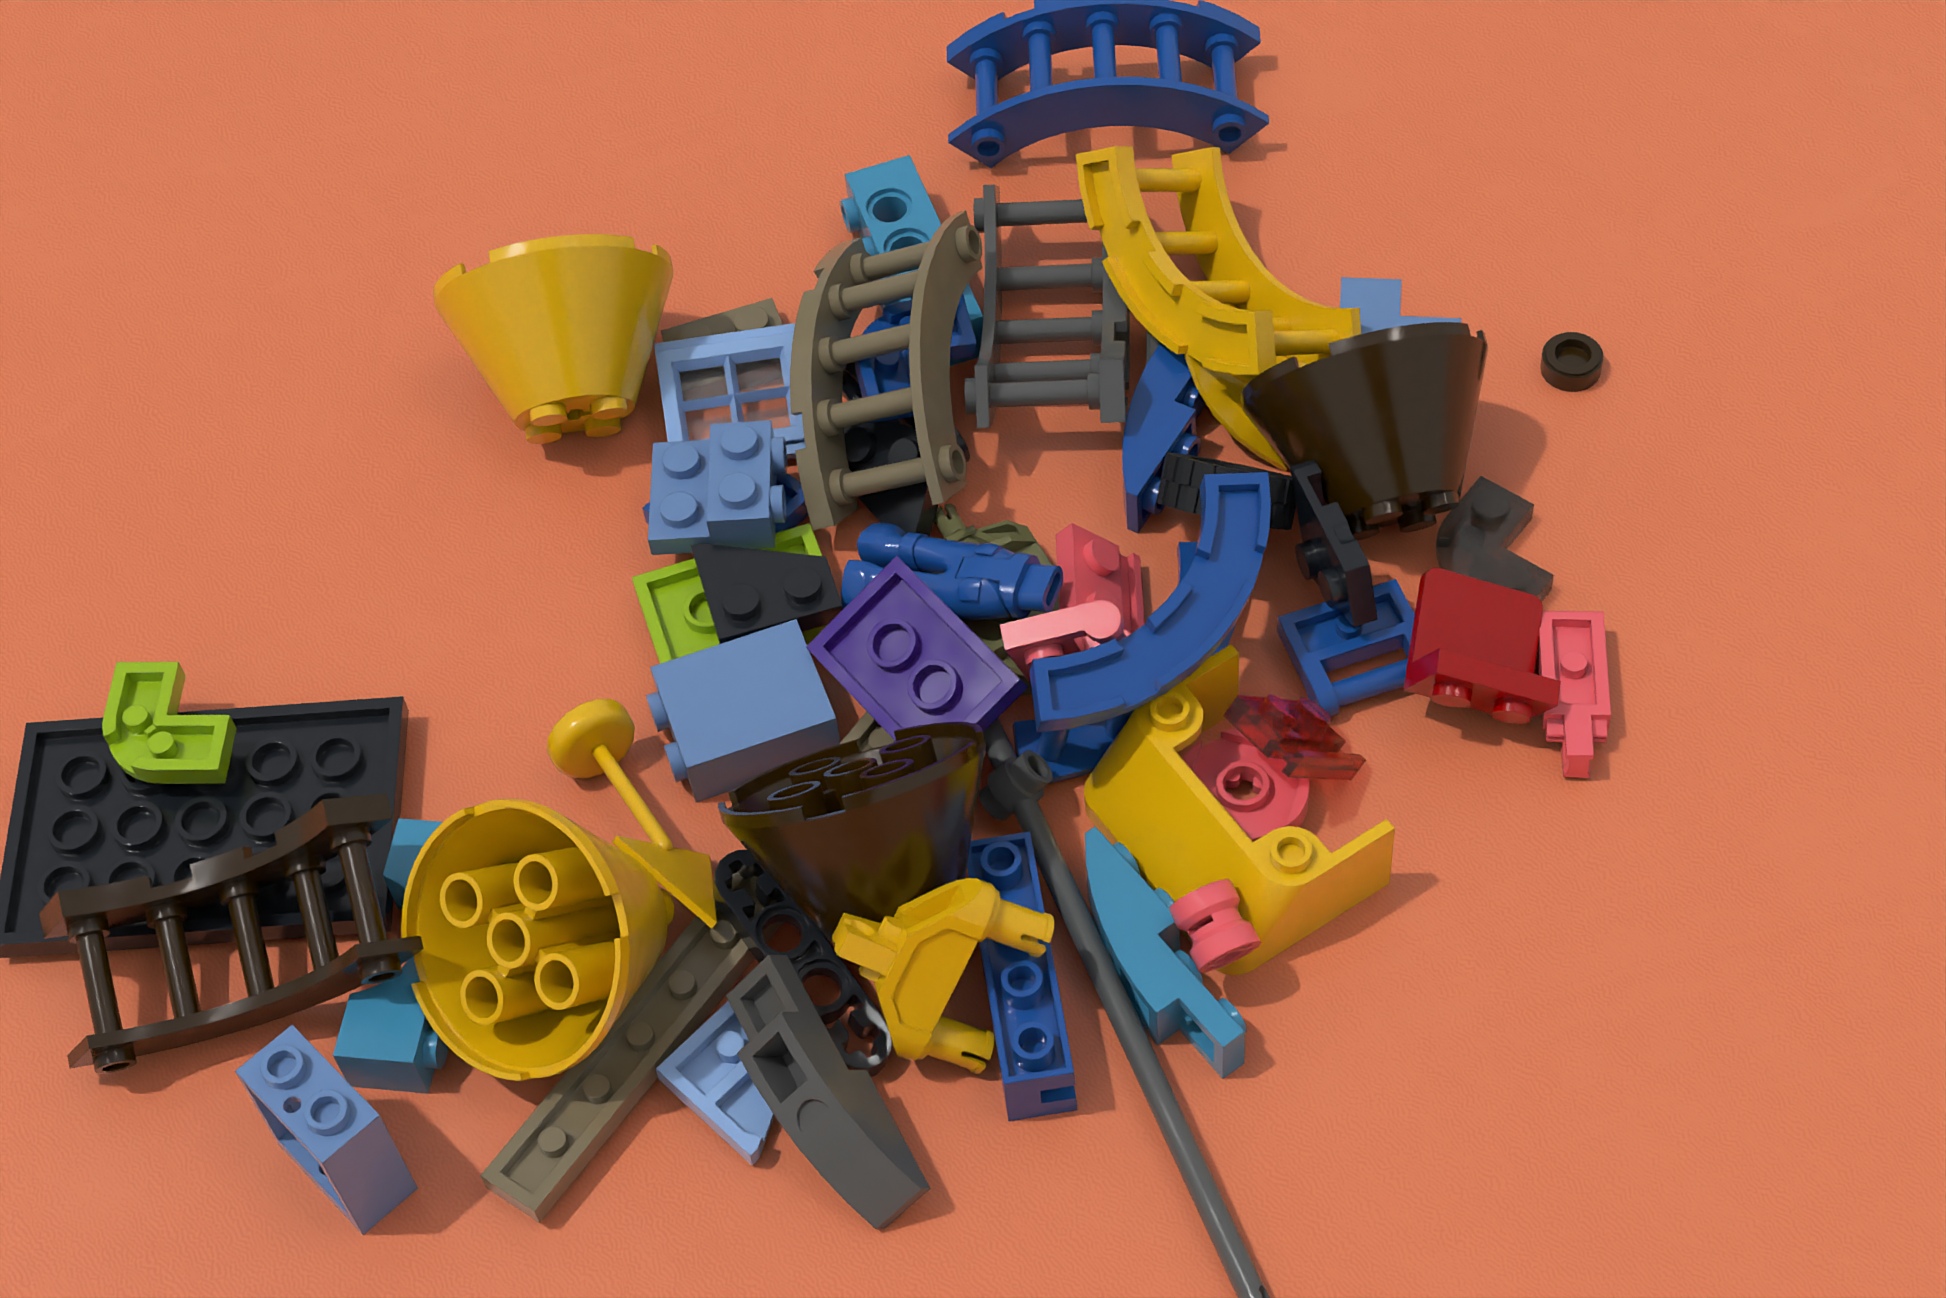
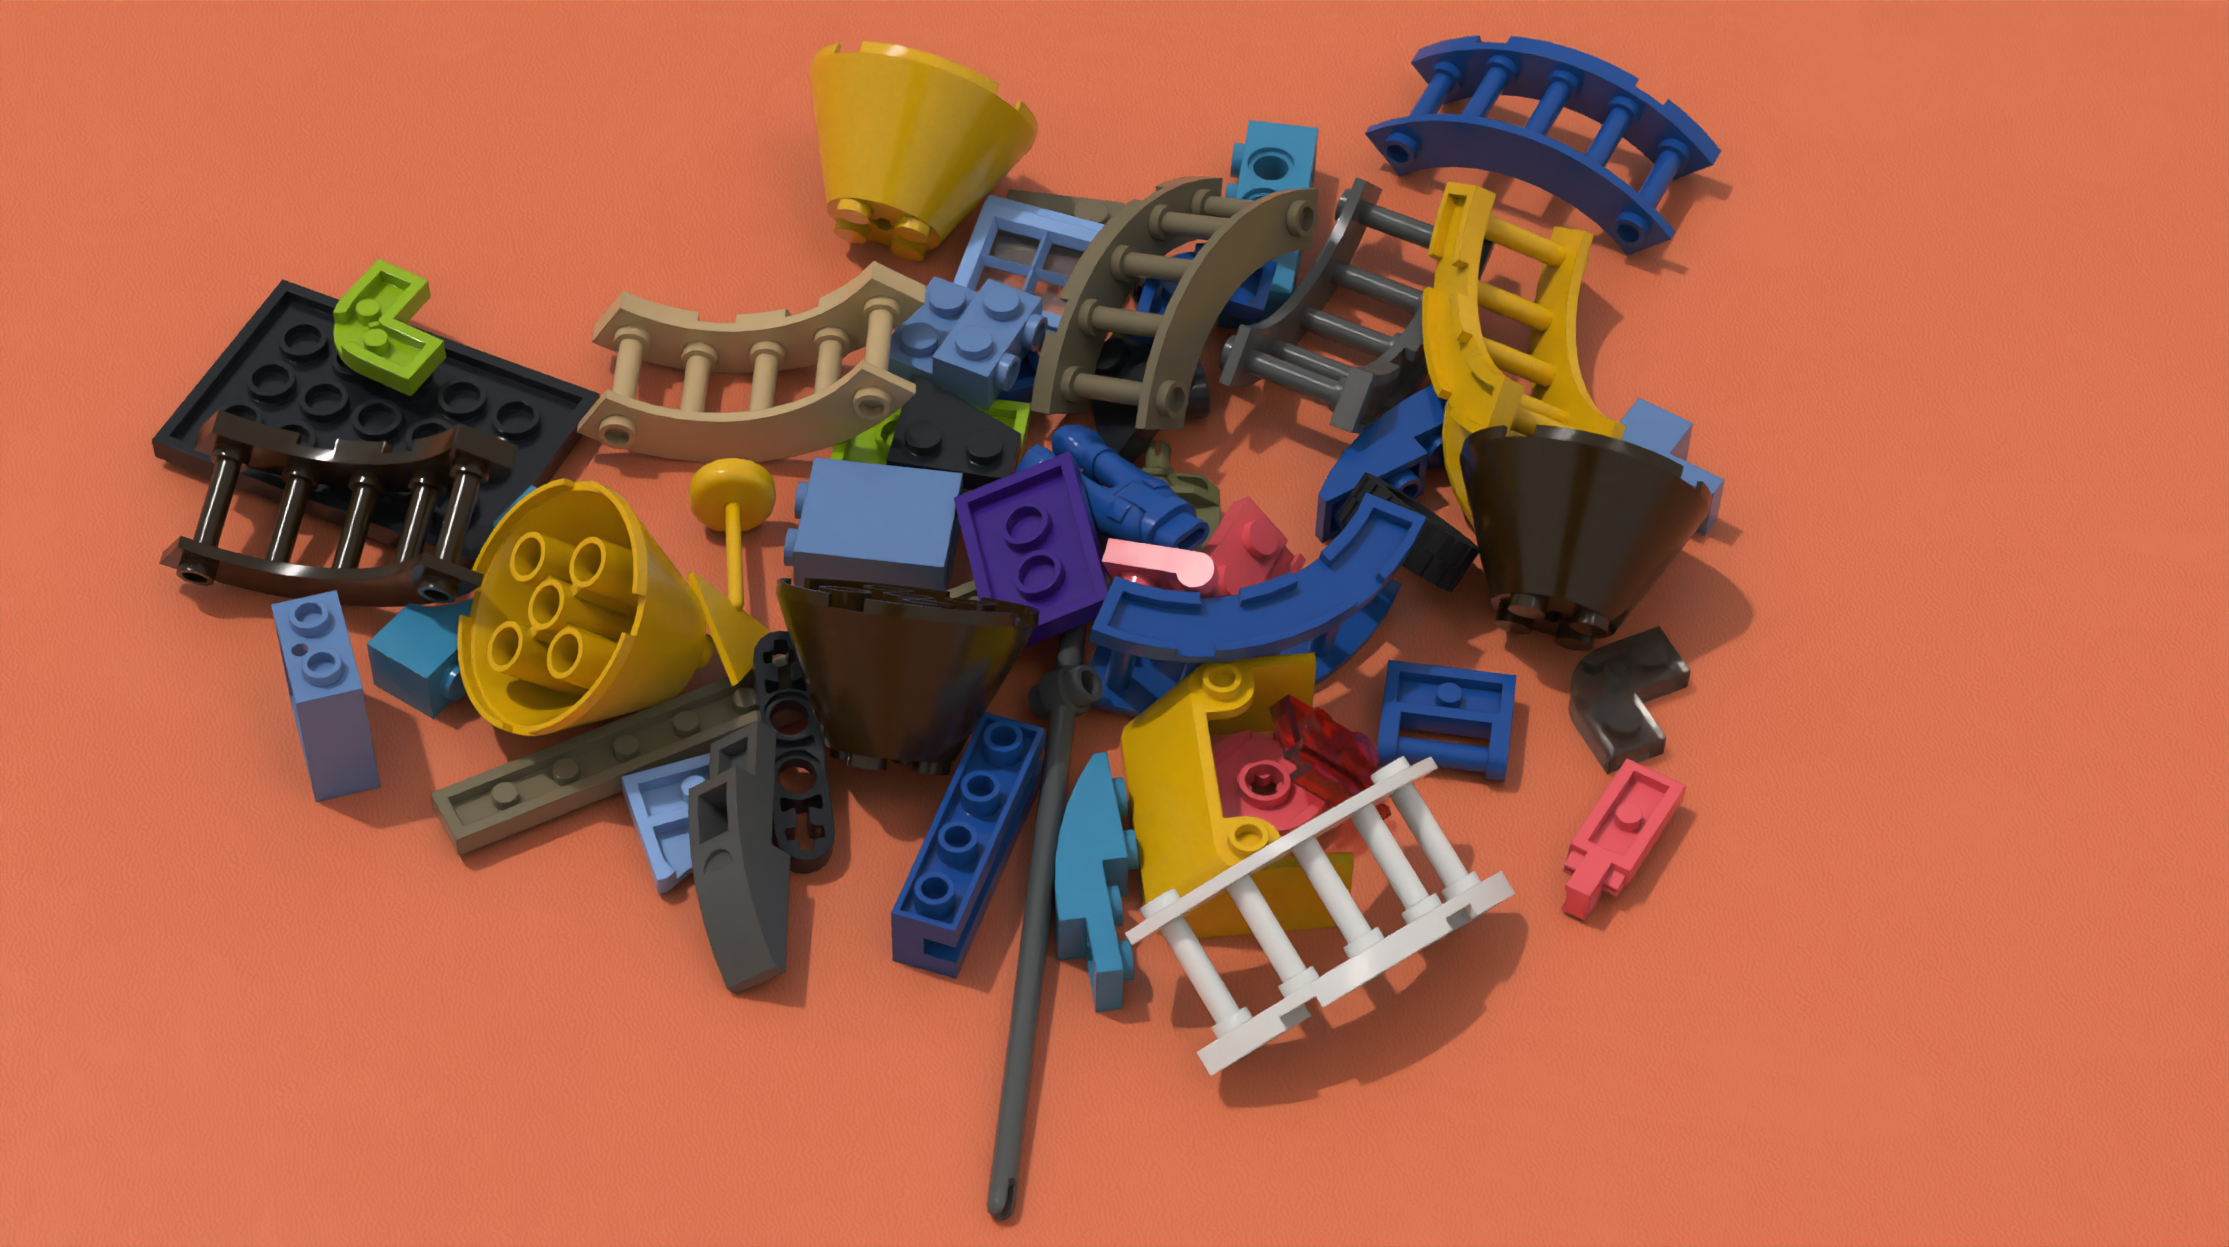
camera: 20 degrees right, 5 degrees down
(532, 576) = (759, 344): none -> tan fence
(922, 956) = (877, 777): yellow connector -> none
(1214, 925) = (1150, 867): coral wheel -> none
(1330, 550) = (1459, 621): black wing -> none
(1462, 907) = (1367, 948): none -> white fence
(1478, 648) = (1546, 760): red bracket -> none
(1571, 361) = (1817, 568): dark brown tile -> none

